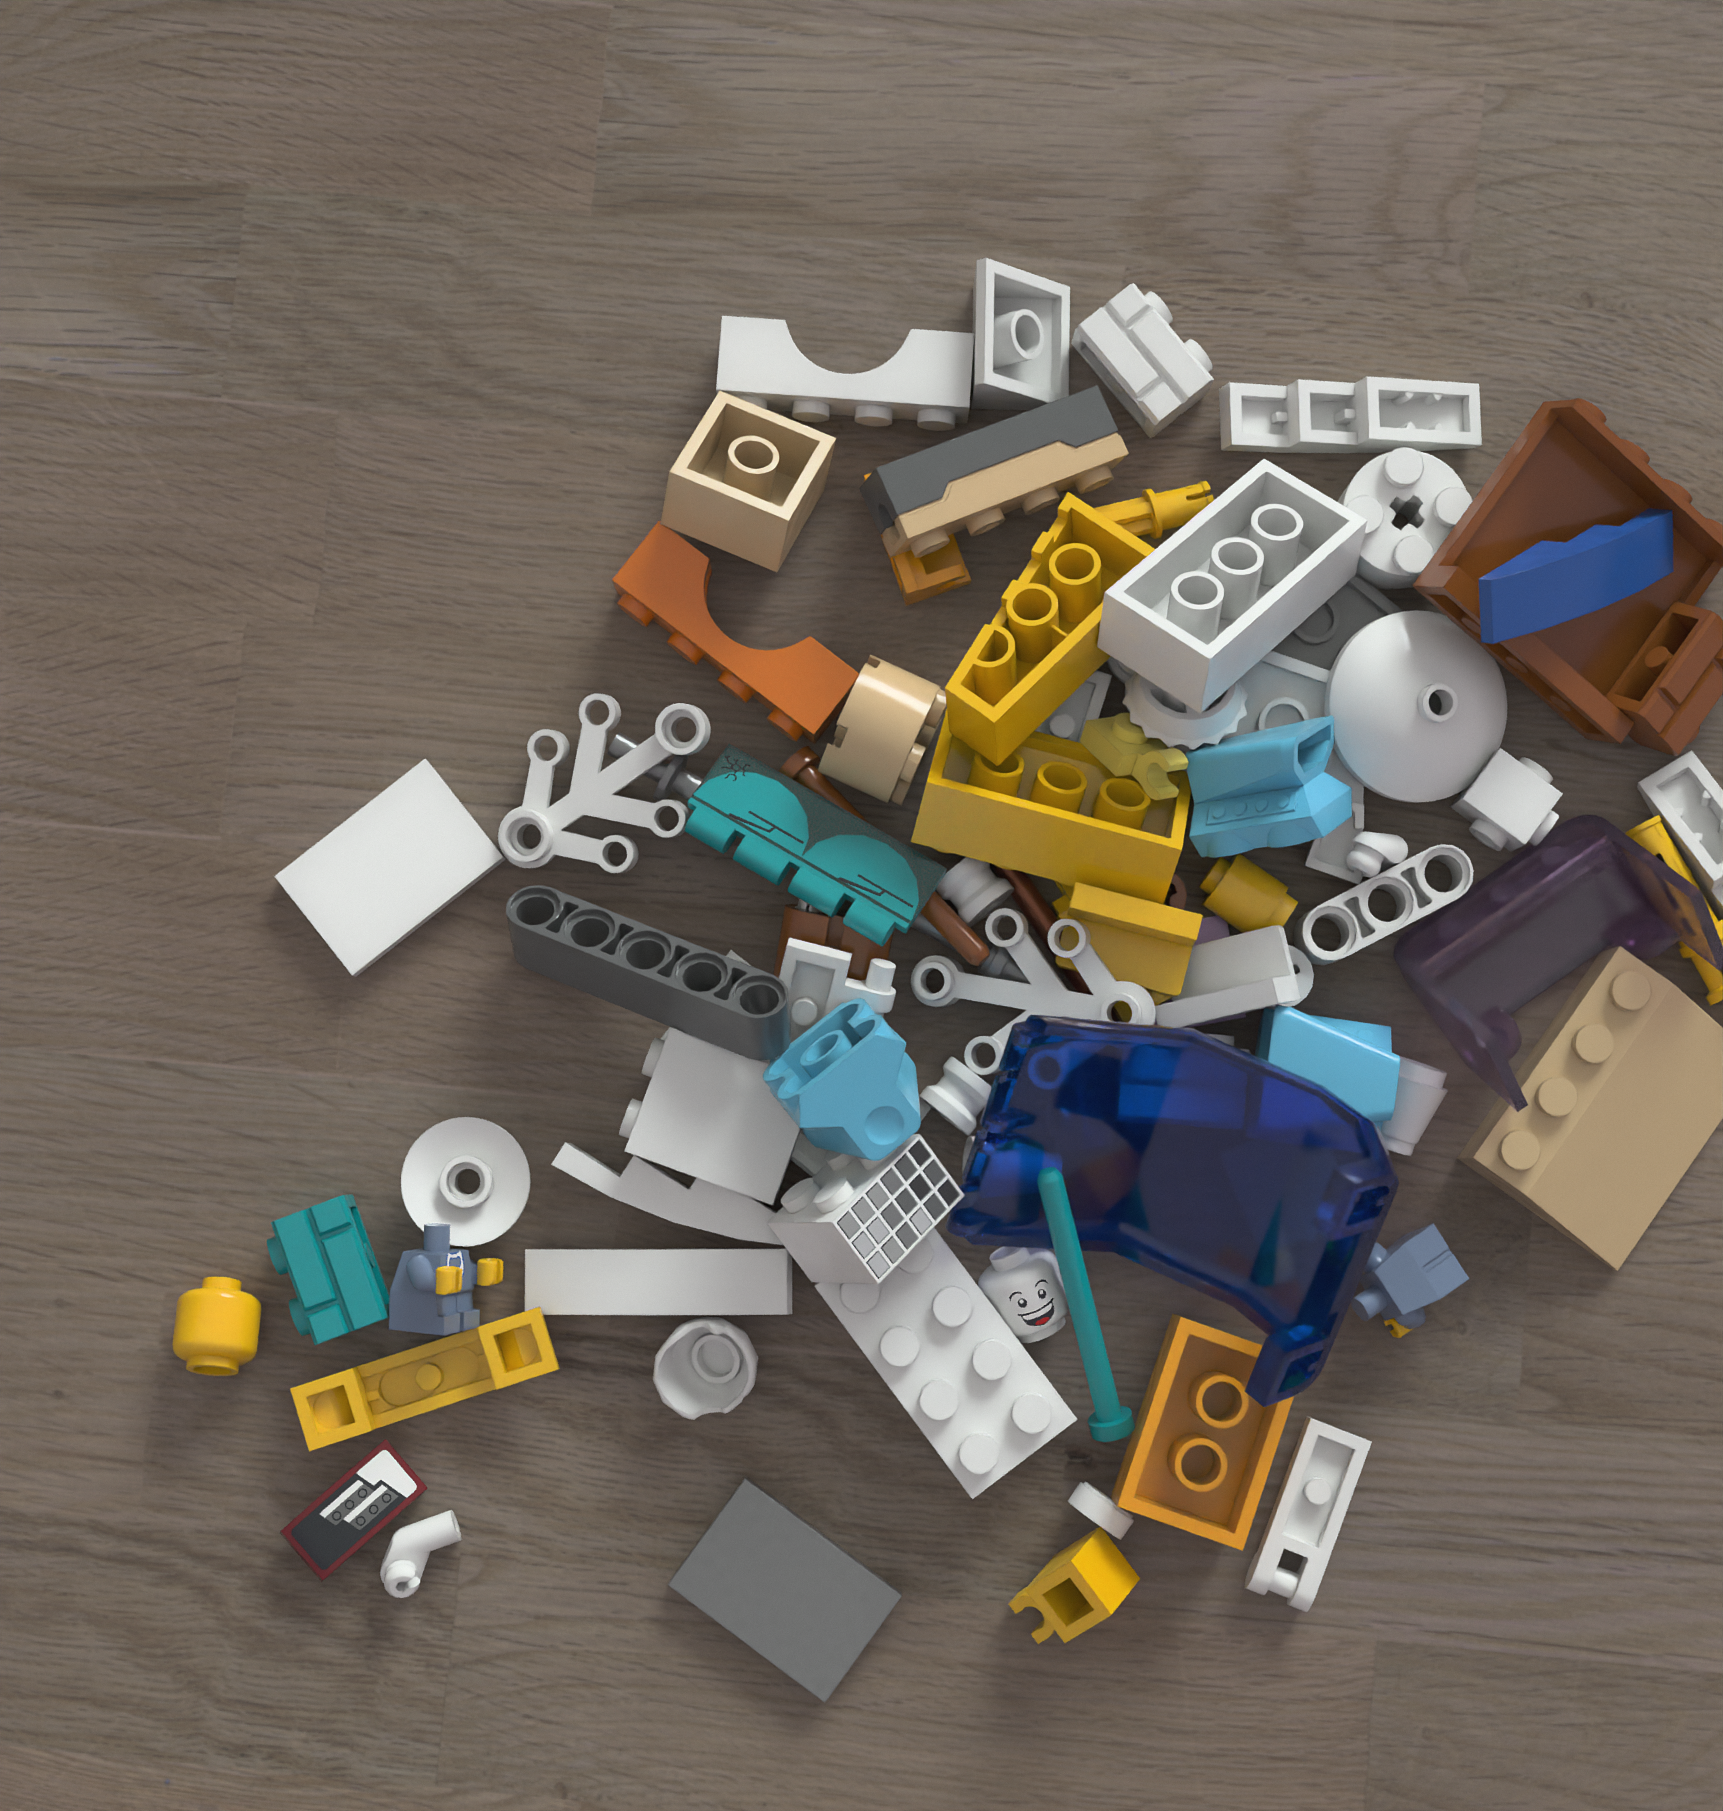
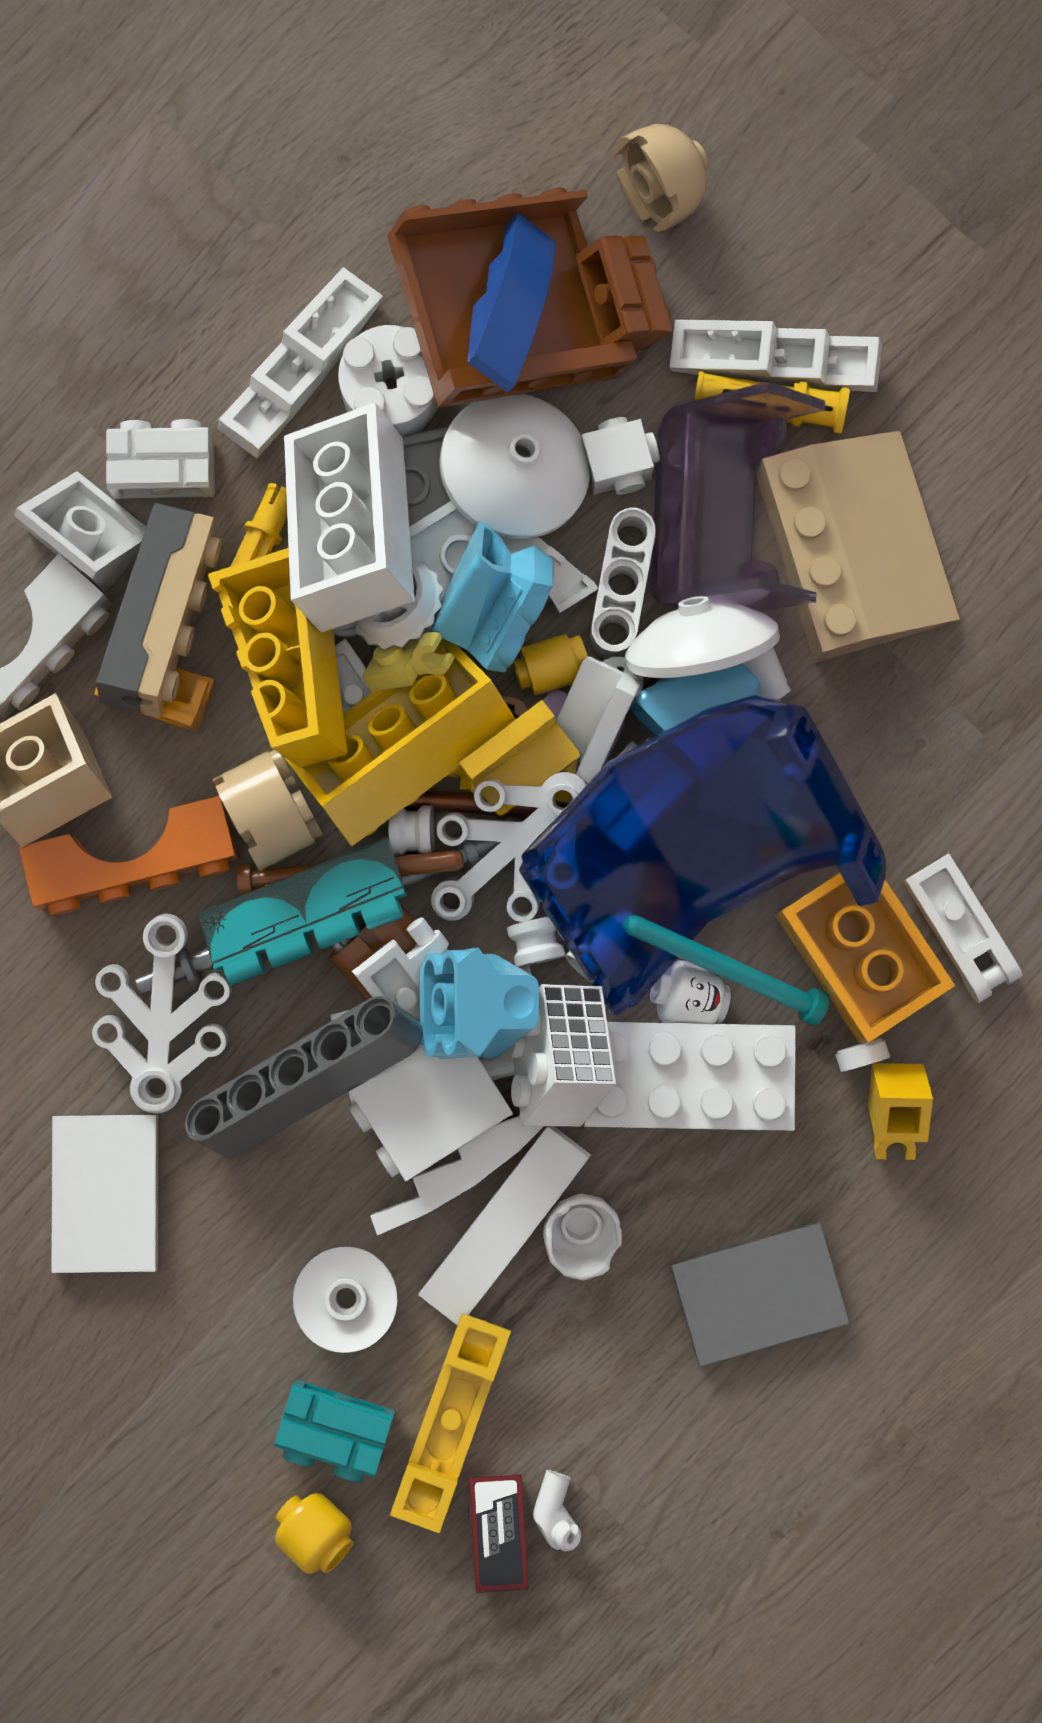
camera: 55 degrees left, 0 degrees up
(436, 1286) = (396, 1368): sand blue piece -> none
(1376, 852) = (587, 562): white arm -> none
(1388, 1026) = (701, 639): none -> white dish
(1406, 1278) = (865, 751): sand blue piece -> none

